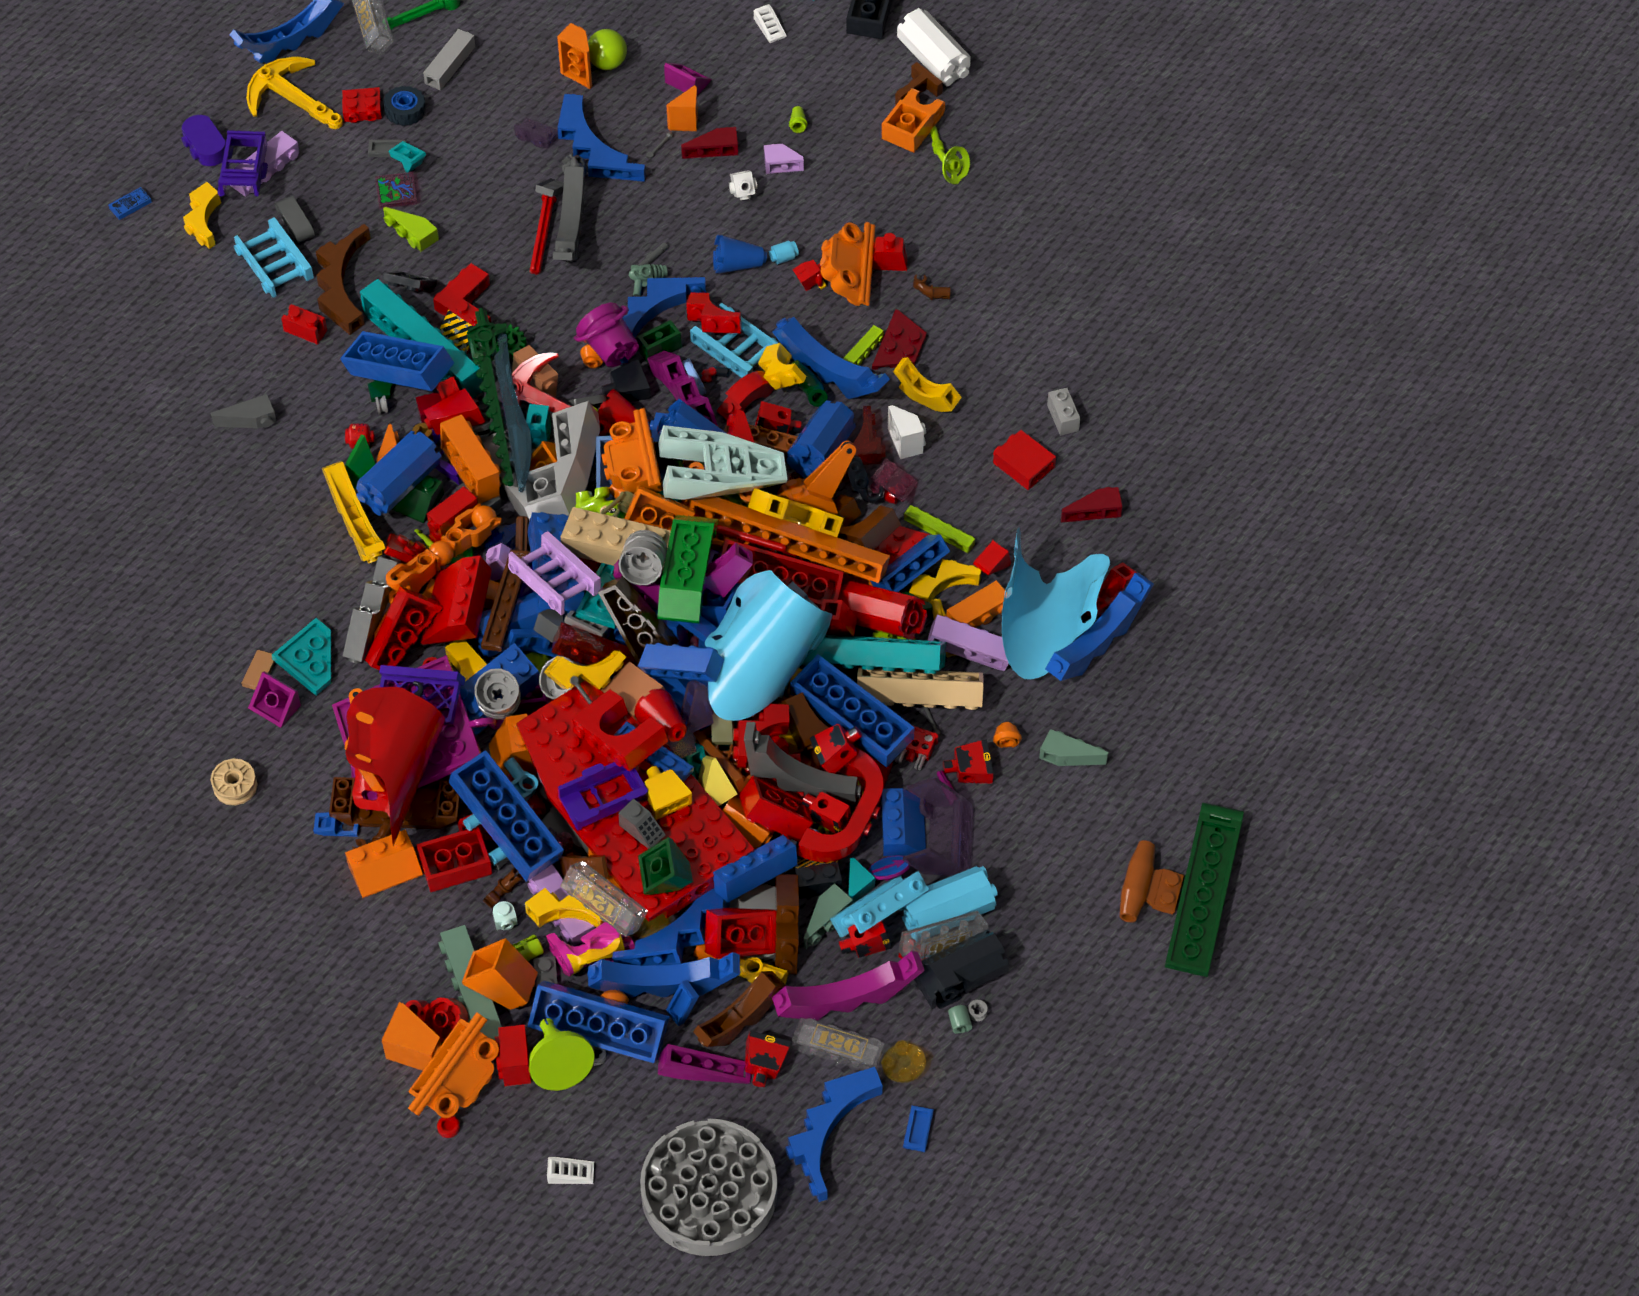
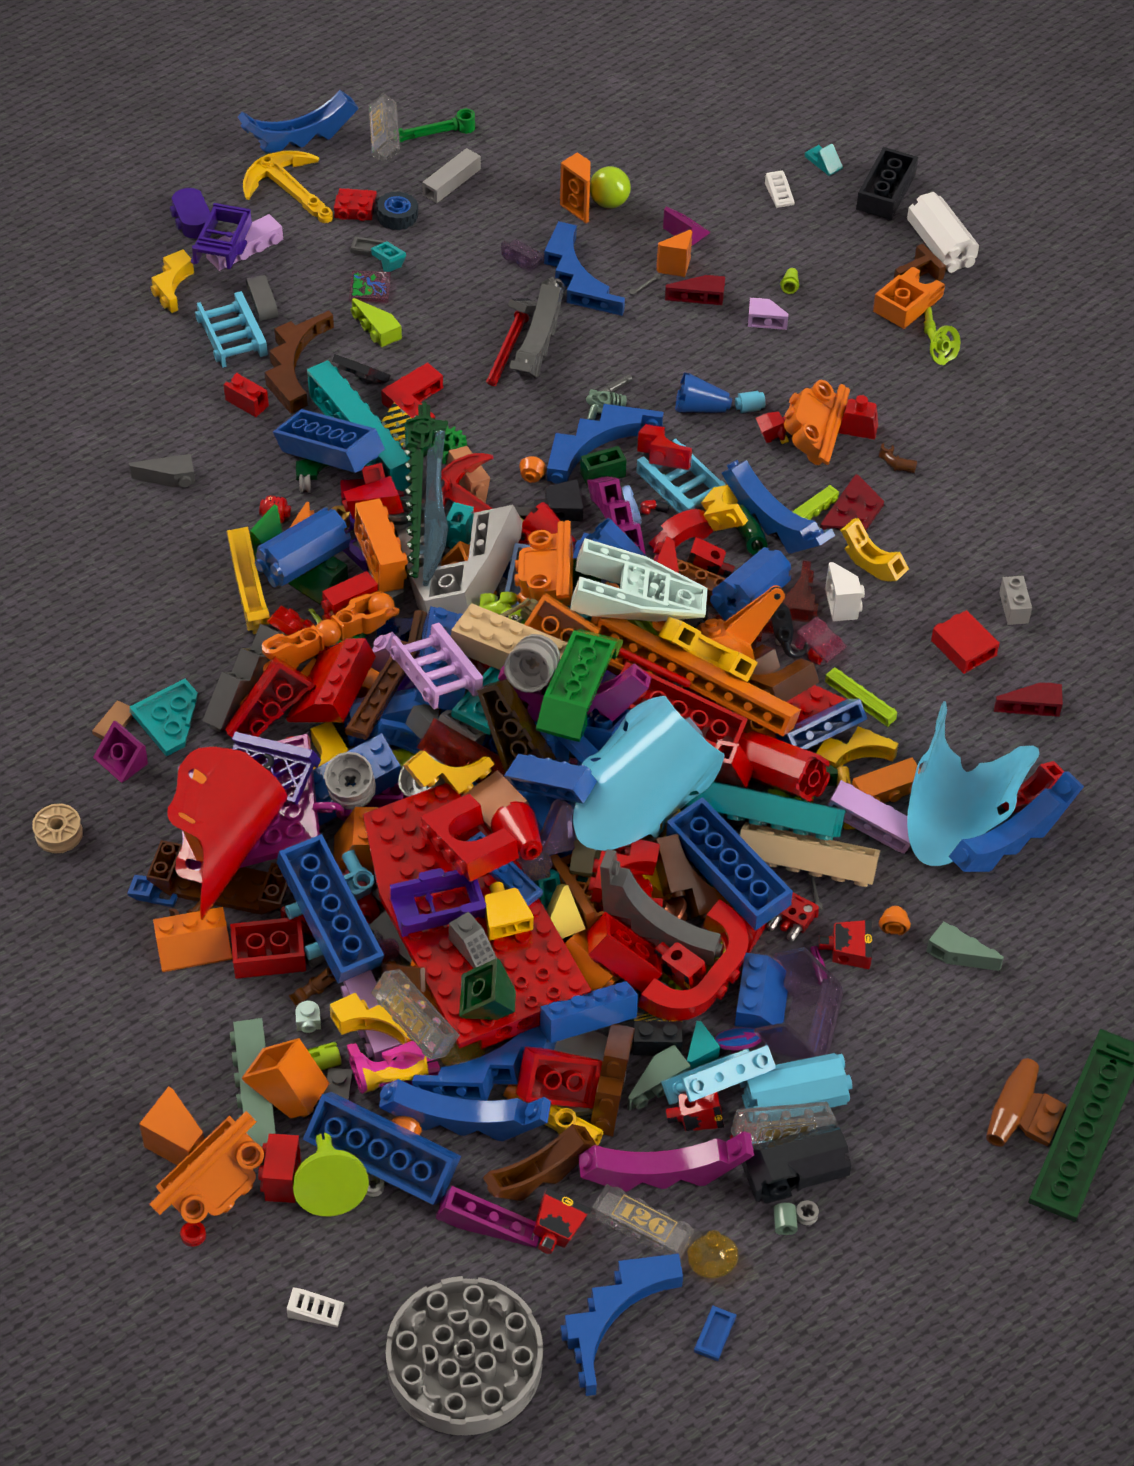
camera: 10 degrees right, 5 degrees down
(130, 203) = (104, 259): blue tile -> none
(434, 1014) = (211, 1108): red piece -> none
(574, 681) = (433, 779): dark grey hinge -> none
(607, 333) = (549, 446): magenta piece -> none
(682, 1002) = (479, 1144): blue tile -> none
(738, 179) = (726, 326): white brick -> none
(835, 747) = (702, 897): red torso -> none
(993, 559) = (913, 735): red slope -> none

